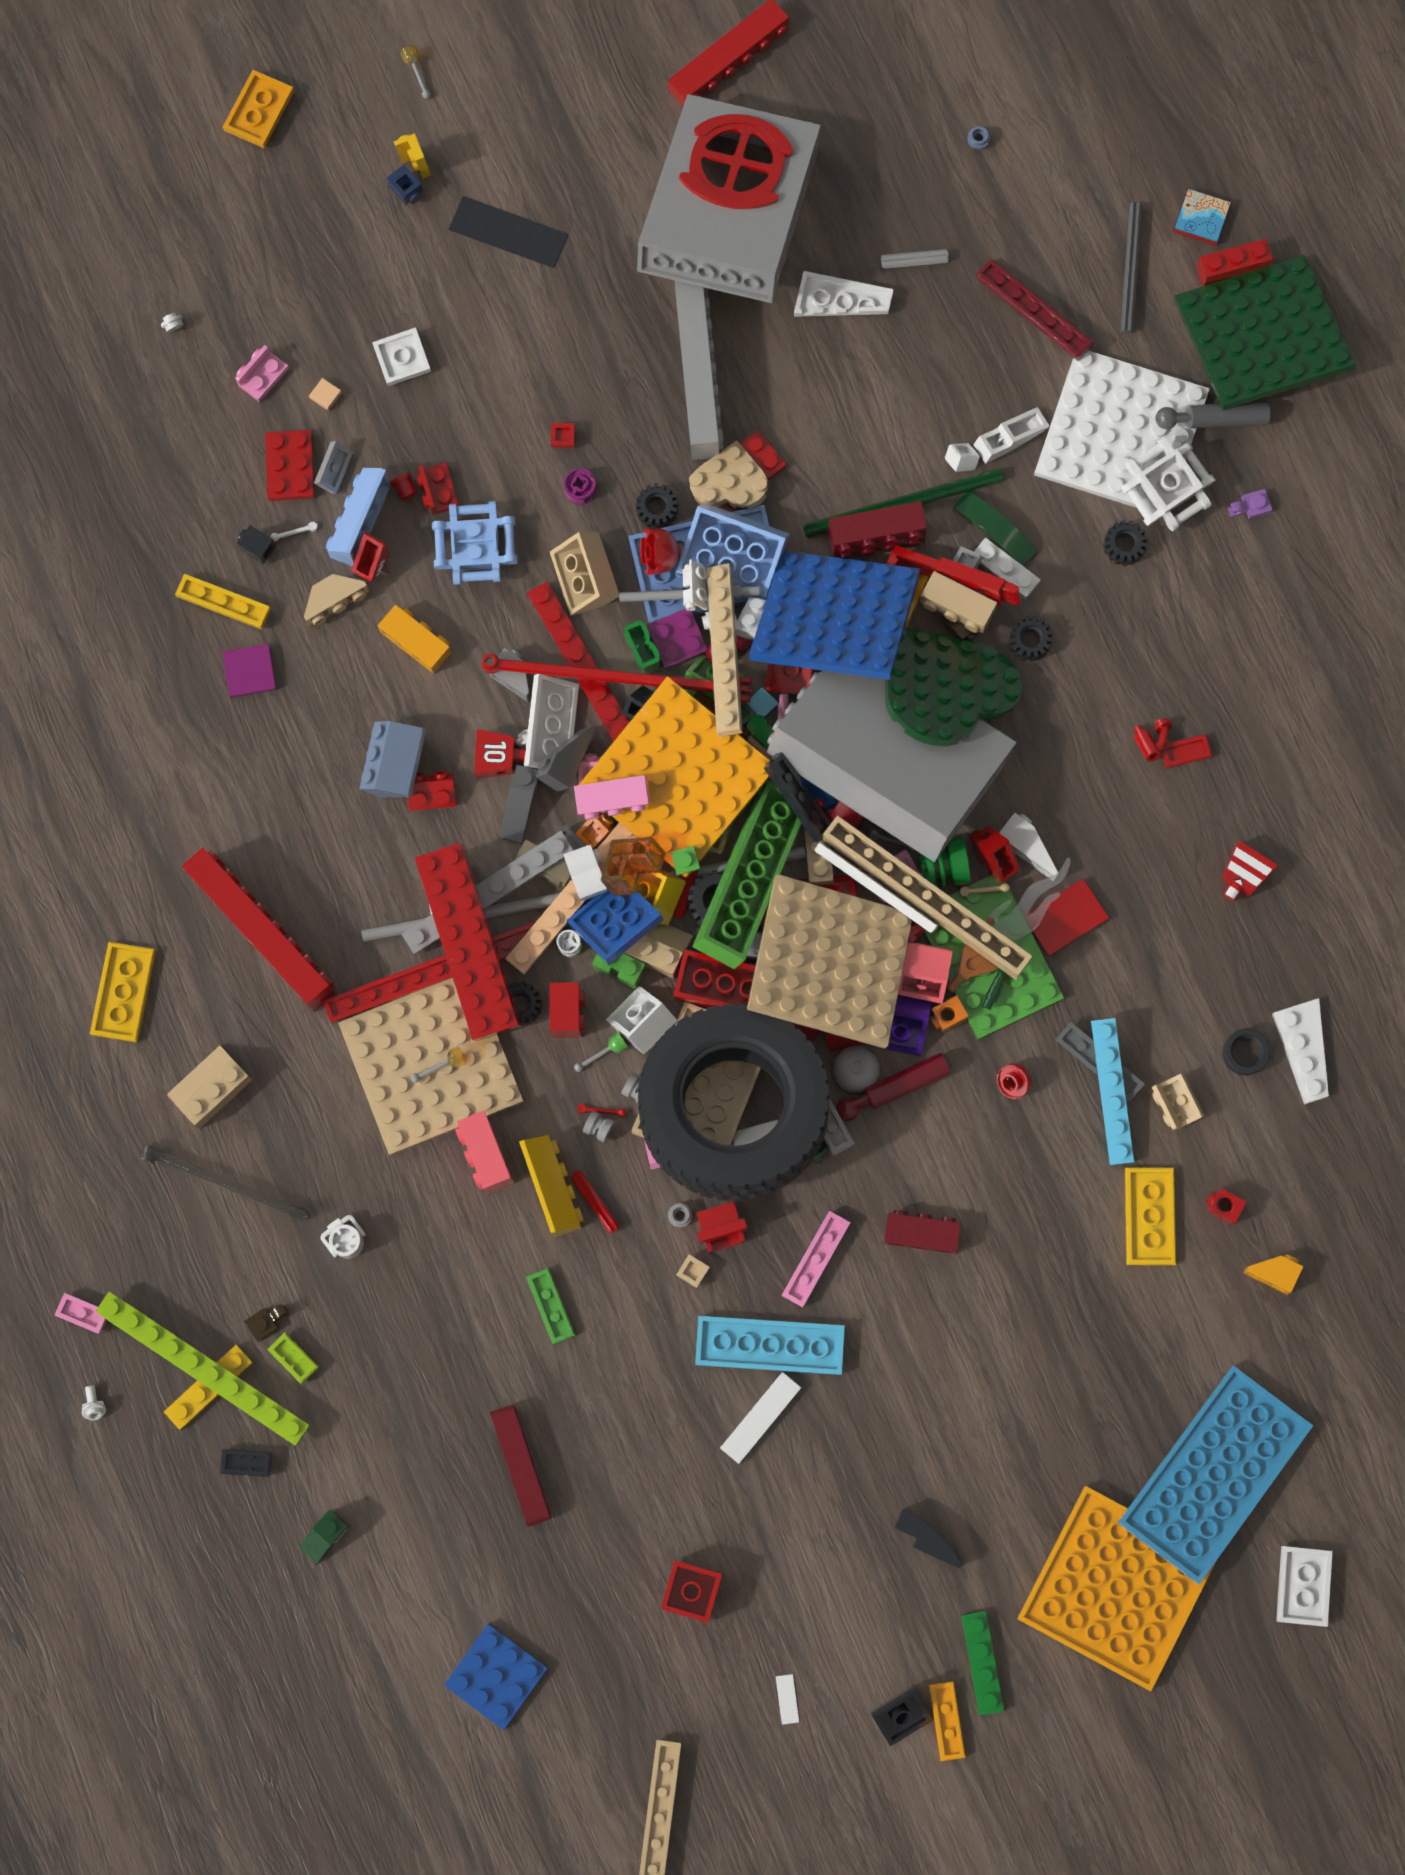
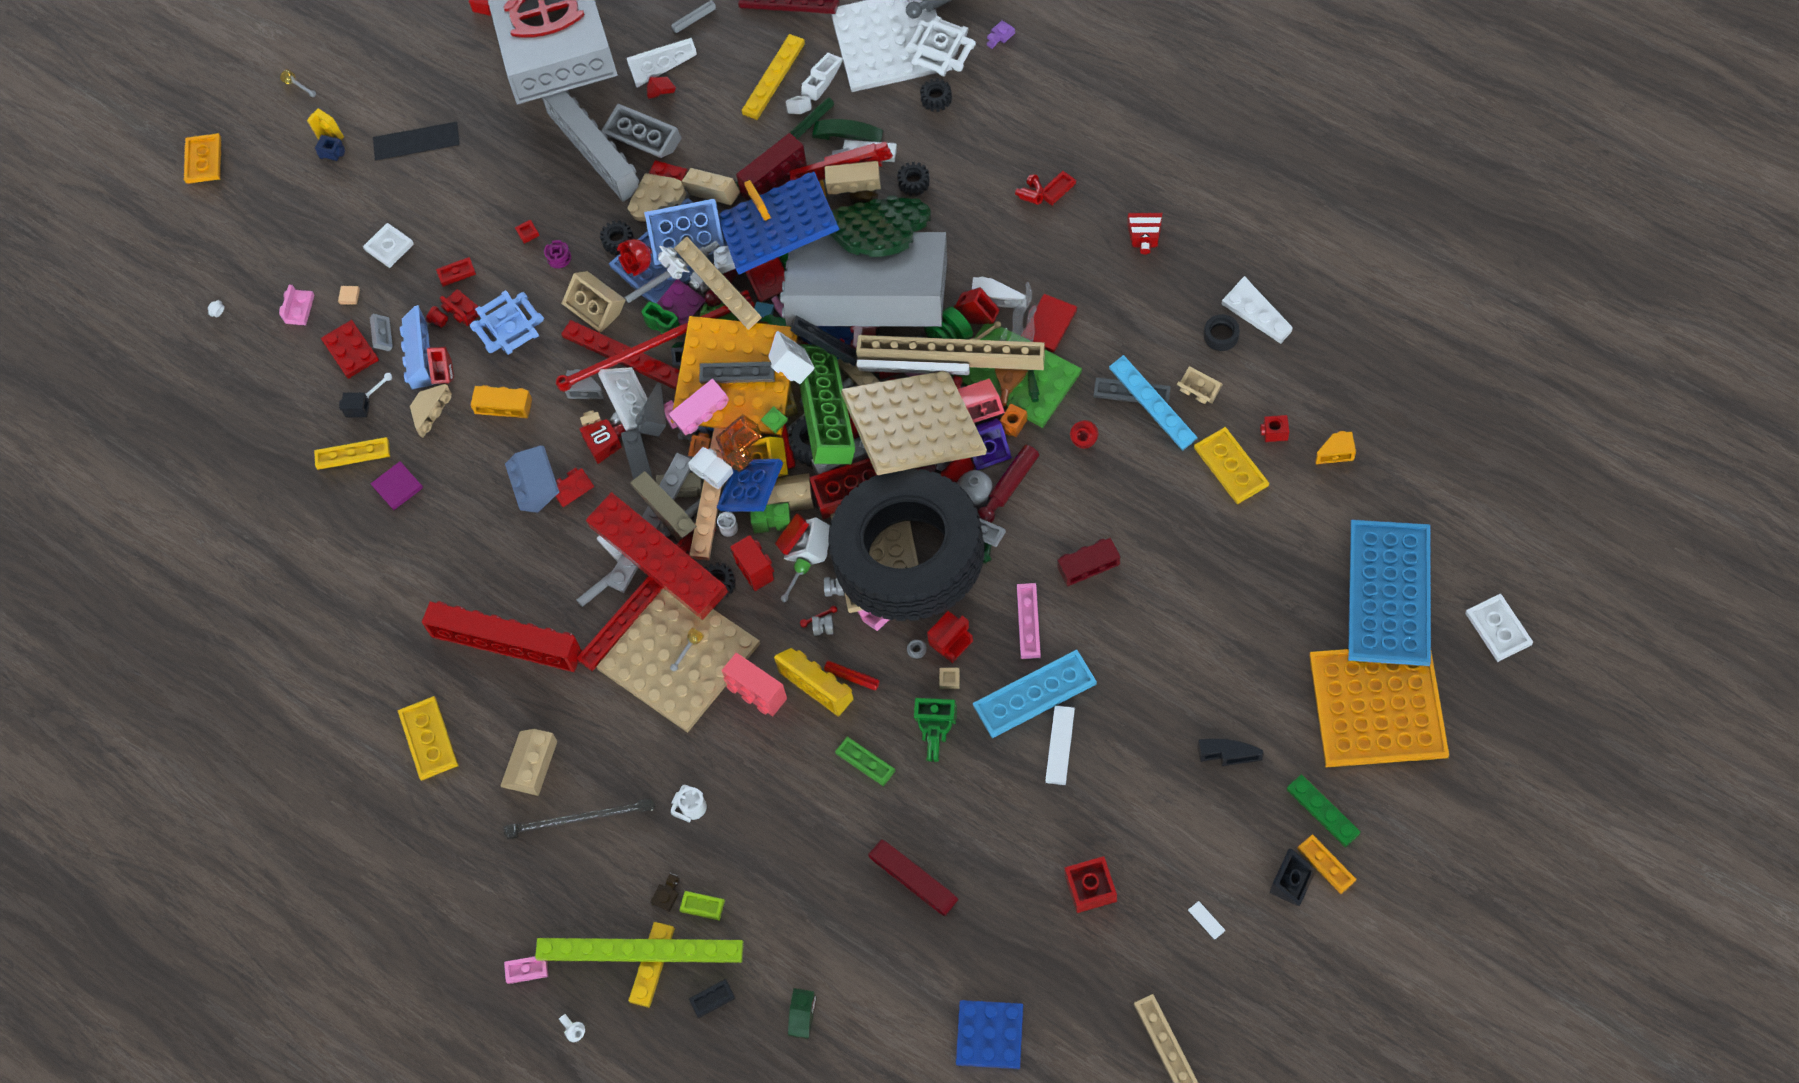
camera: 30 degrees left, 15 degrees down
(456, 439) = (456, 271): none -> red plate
(495, 726) = (590, 418): none -> tan plate
(508, 887) = (663, 506): none -> dark tan slope
(628, 1001) = (791, 534): none -> red tile
(648, 1309) = (934, 718): none -> green brick
(677, 781) = (736, 372): none -> dark grey plate
(743, 802) = (790, 358): none -> white slope
(760, 387) = (642, 131): none -> light grey slope
(796, 509) = (711, 186): none -> tan brick
(819, 334) = (658, 86): none -> red tile
(829, 573) = (757, 200): none -> light orange tile
(957, 399) = (773, 77): none -> yellow plate

